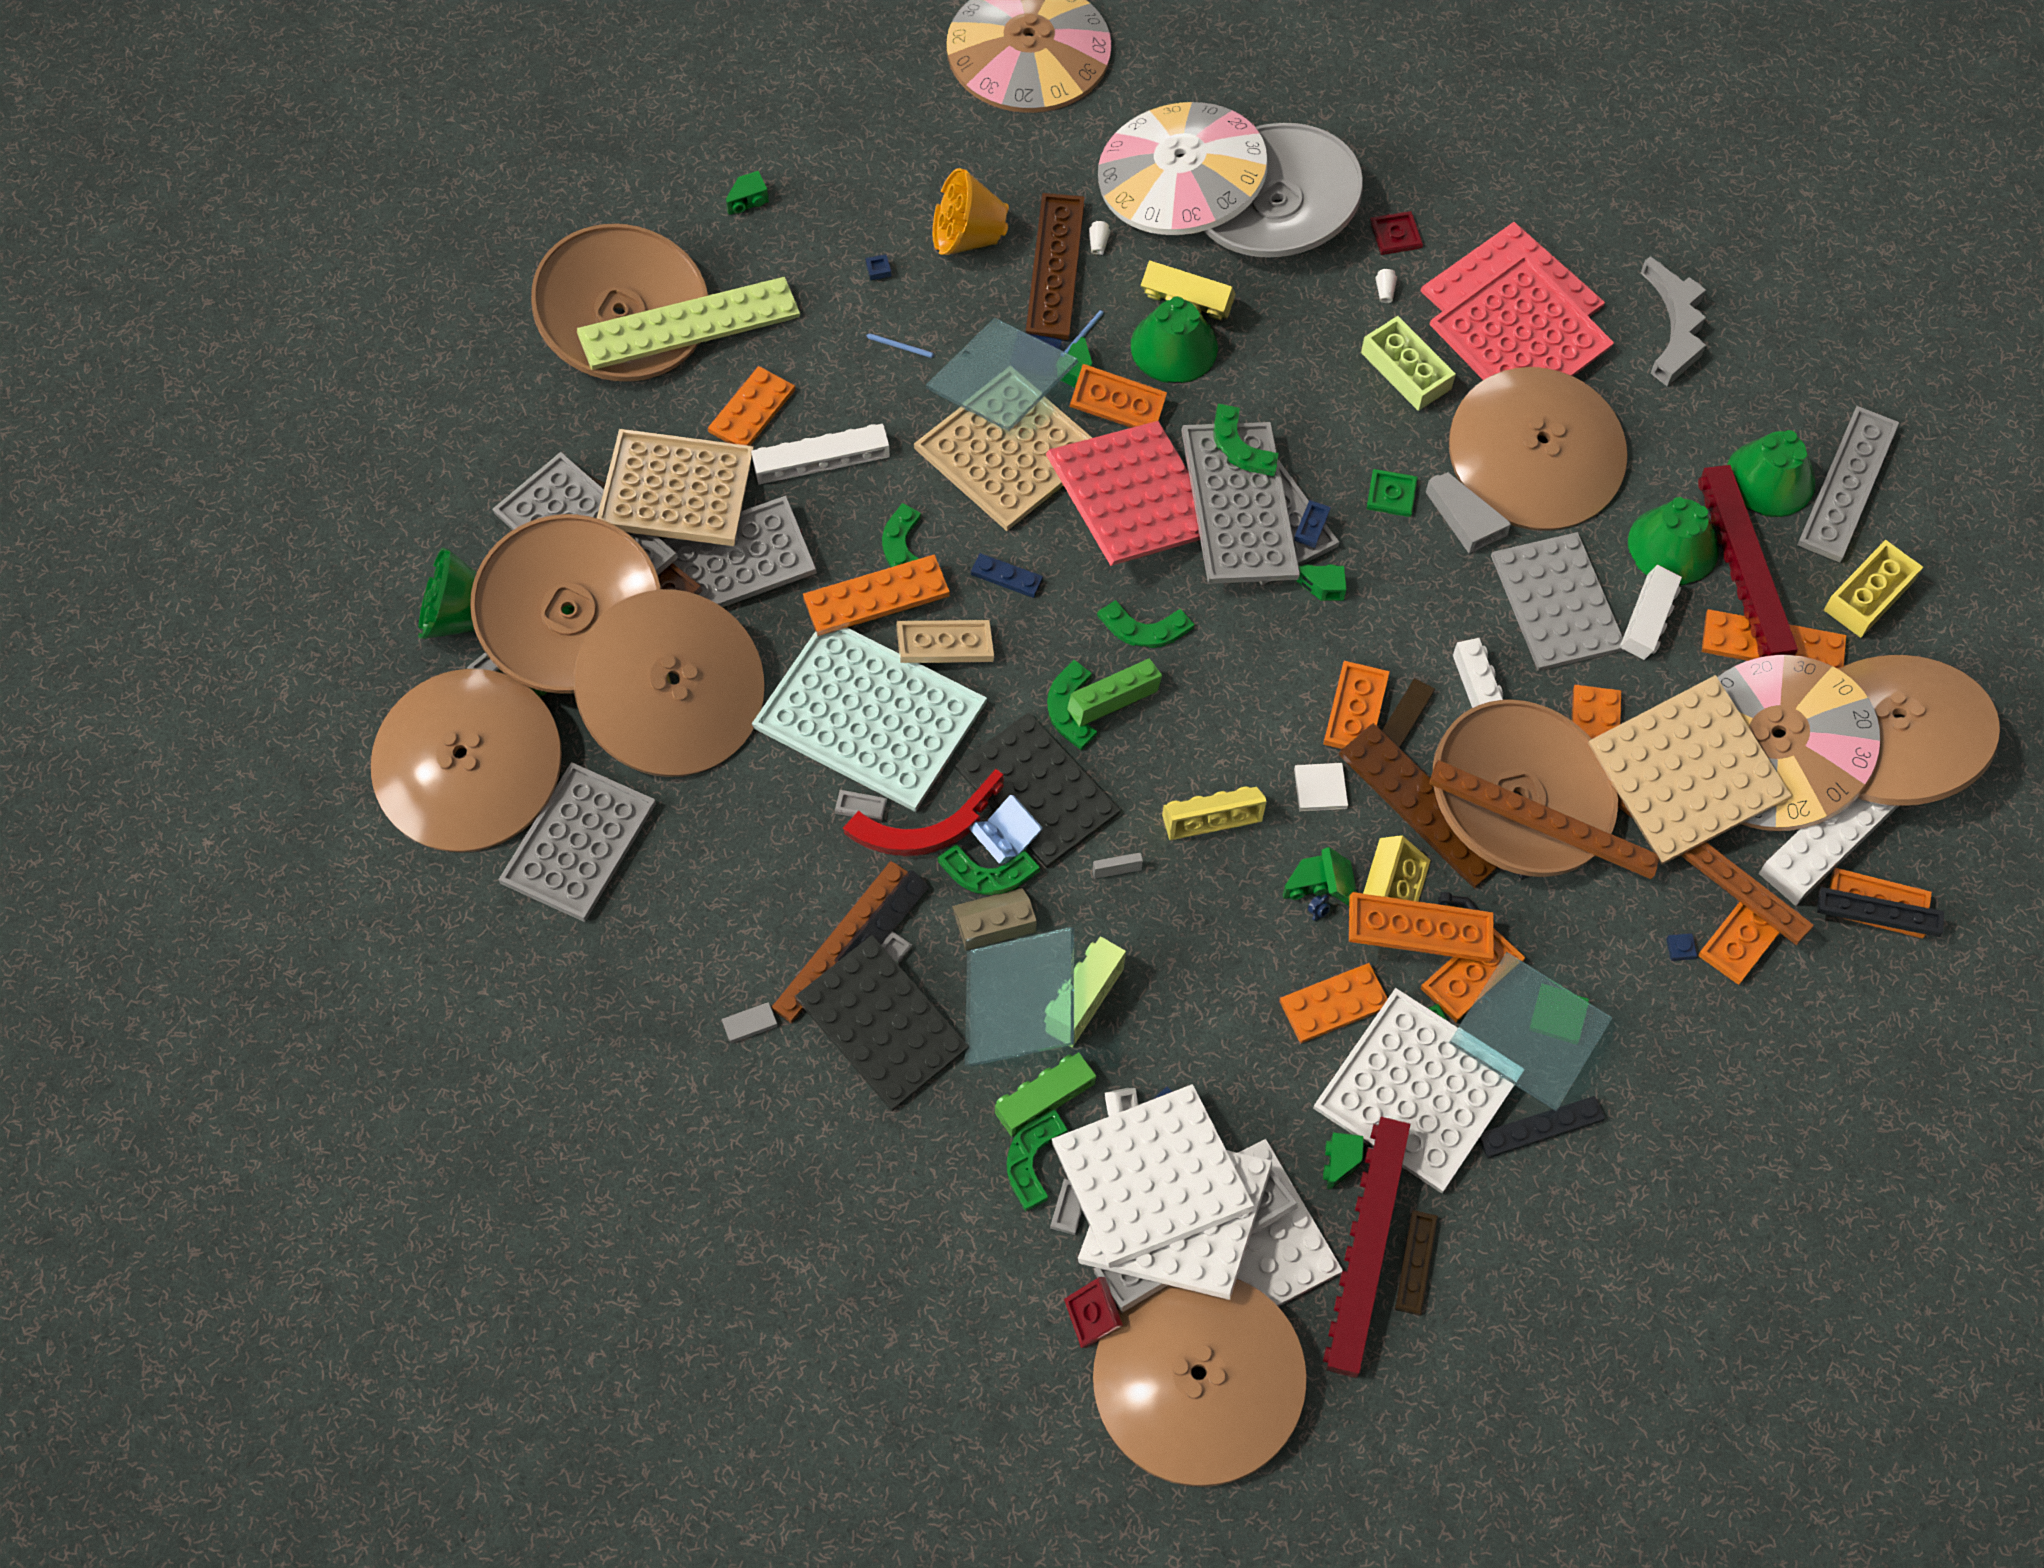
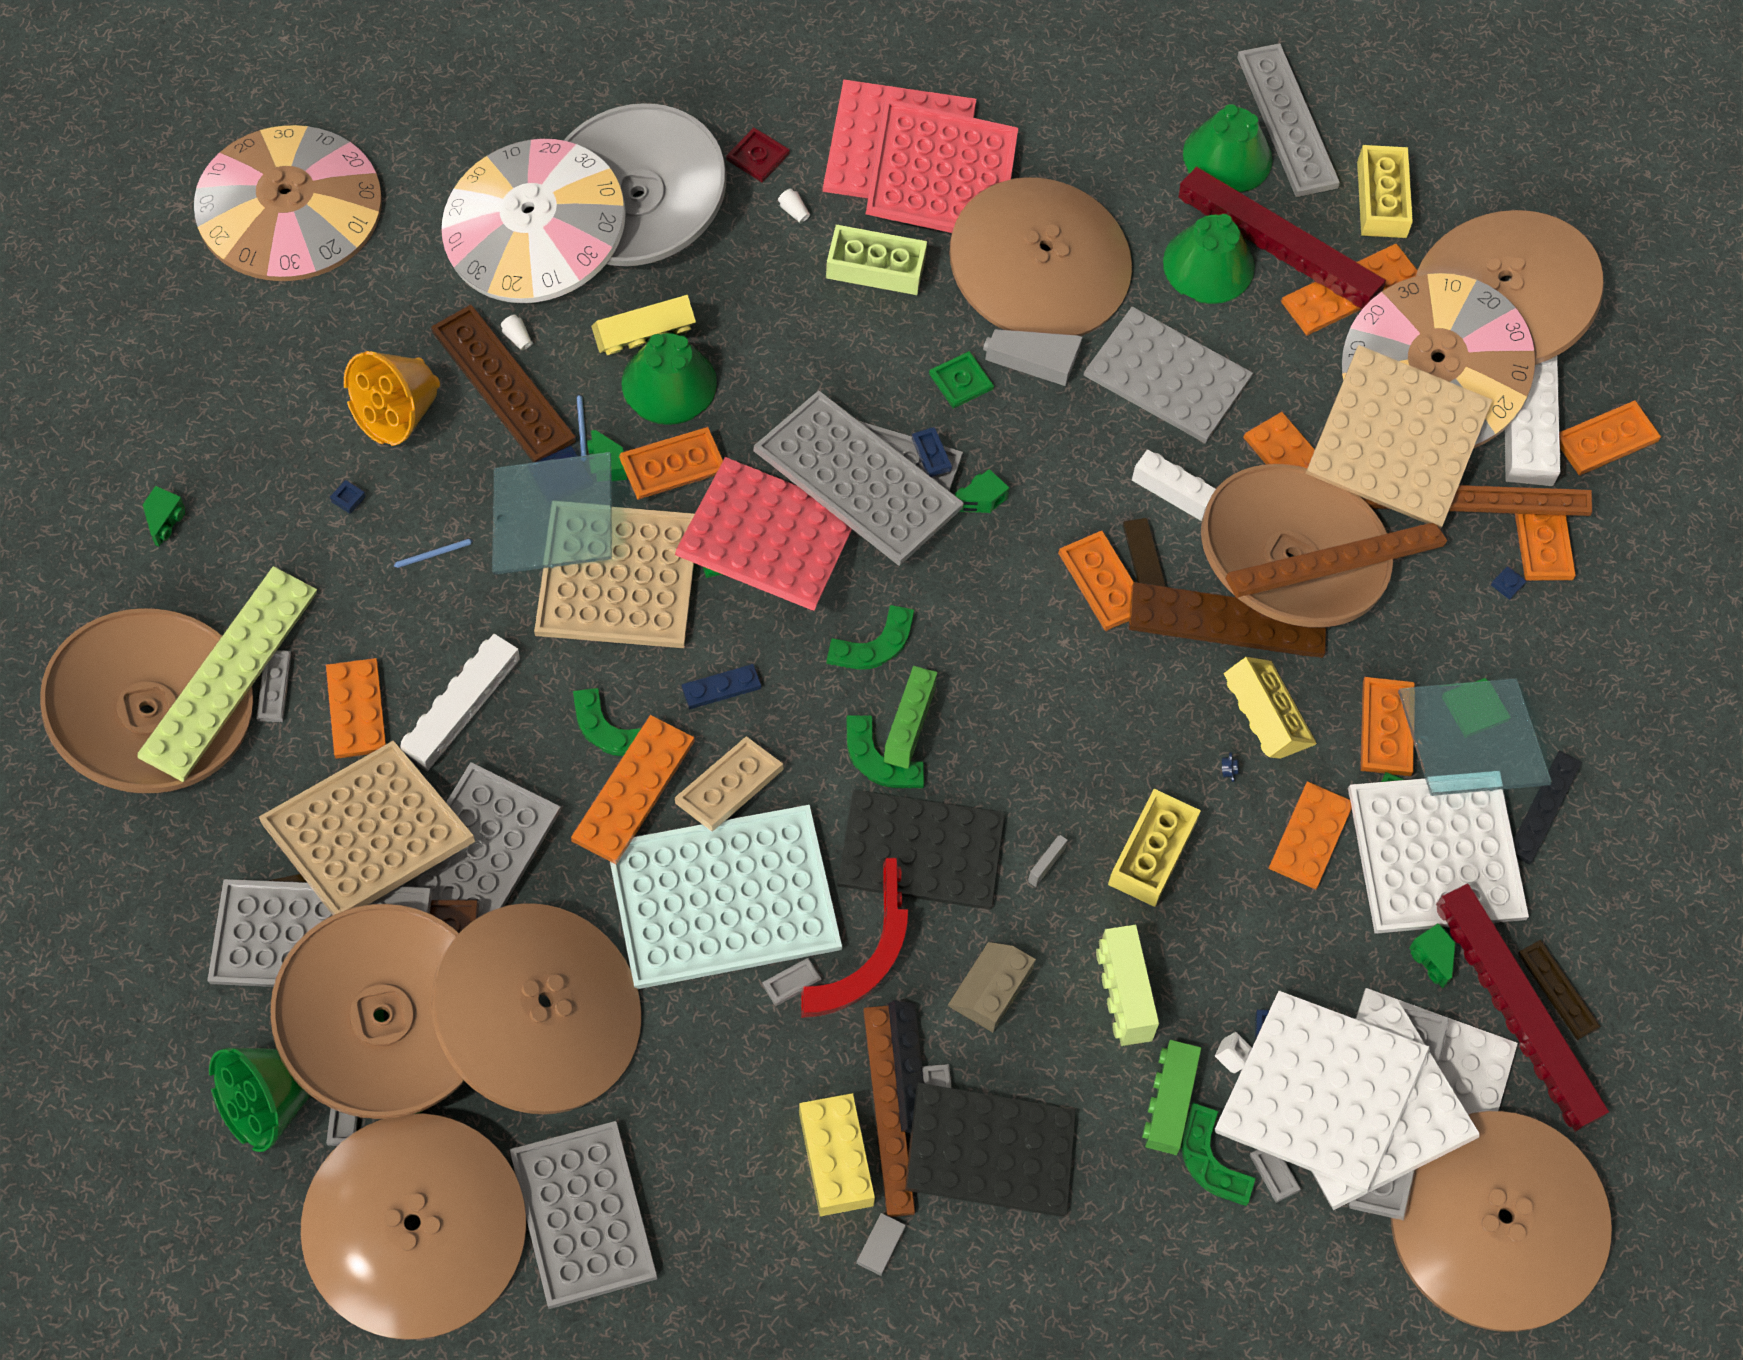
camera: 45 degrees left, 0 degrees up
(713, 357) = (274, 688): none -> light grey tile
(774, 939) = (836, 1154): none -> light yellow brick
(985, 880) = (954, 961): green plate -> none
(1007, 830) = (937, 902): light blue bracket -> none
(1020, 997) = (1086, 1033): clear light blue piece -> none
(1093, 1312) = (1379, 1240): dark red tile -> none
(1202, 916) = (1154, 847): none -> light yellow brick
(1214, 812) = (1080, 753): light yellow slope -> none
(1237, 451) = (822, 435): green plate -> none
(1307, 879) = (1200, 747): green slope -> none
(1320, 787) = (1136, 667): white tile -> none
(1338, 875) = (1226, 729): green tile -> none
(1420, 927) = (1327, 720): orange plate -> none
(1448, 900) = (1316, 681): black arm -> none
(1651, 612) = (1248, 331): white brick -> none
(1685, 320) = (1049, 70): light grey arch -> none
(1880, 912) = (1619, 443): black plate -> none

